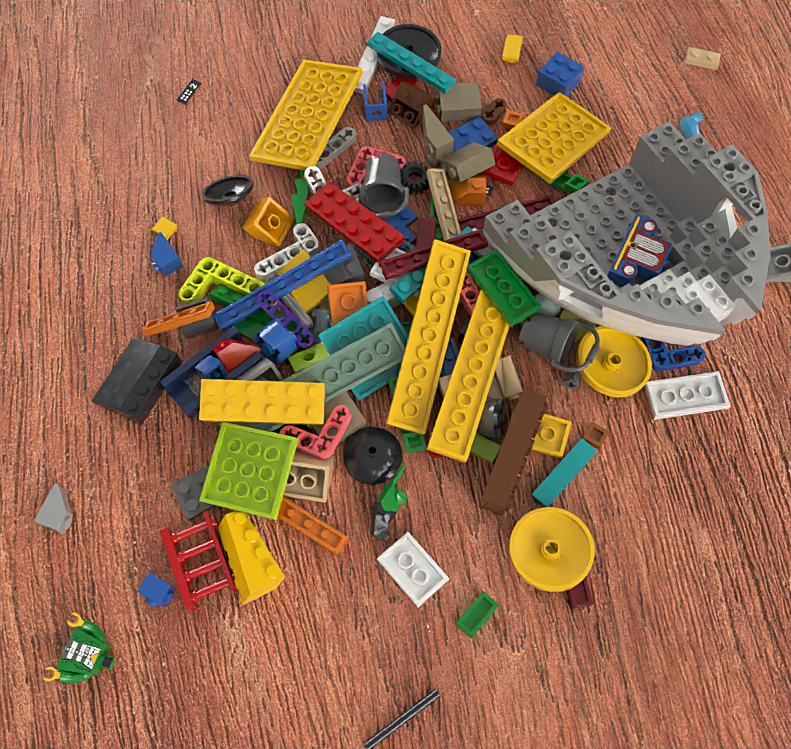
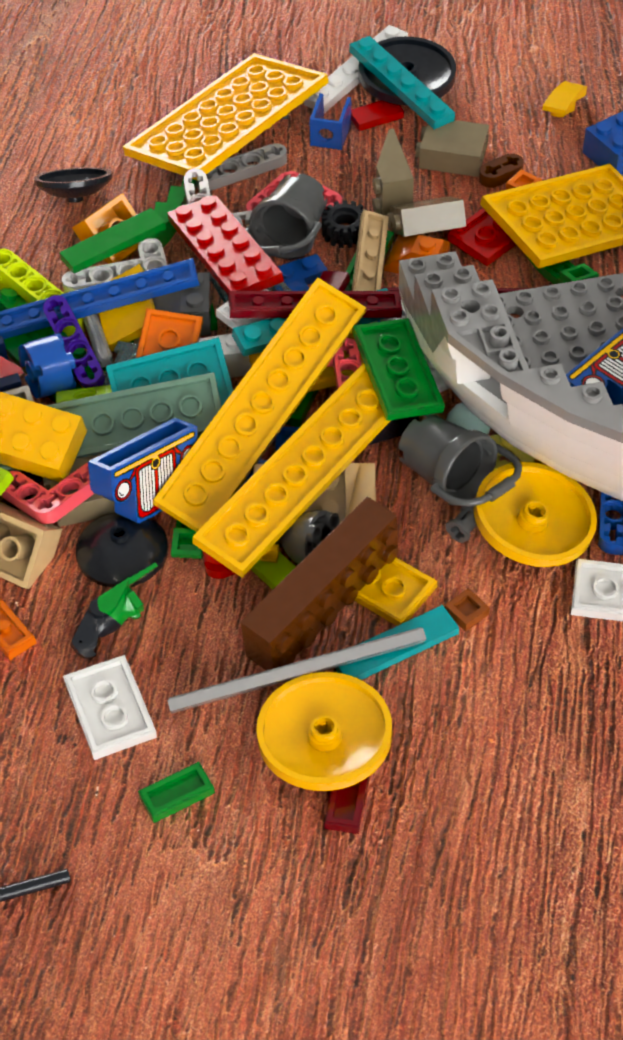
camera: 20 degrees right, 15 degrees down
(189, 91) = (81, 62): black sticker -> none
(276, 233) = (112, 240): none -> green tile
(373, 407) = (140, 468): none -> brick
(409, 103) = (372, 128): reddish brown slope -> none
(473, 131) = (461, 185): blue plate -> none
(518, 513) = (294, 670): none -> light grey tile

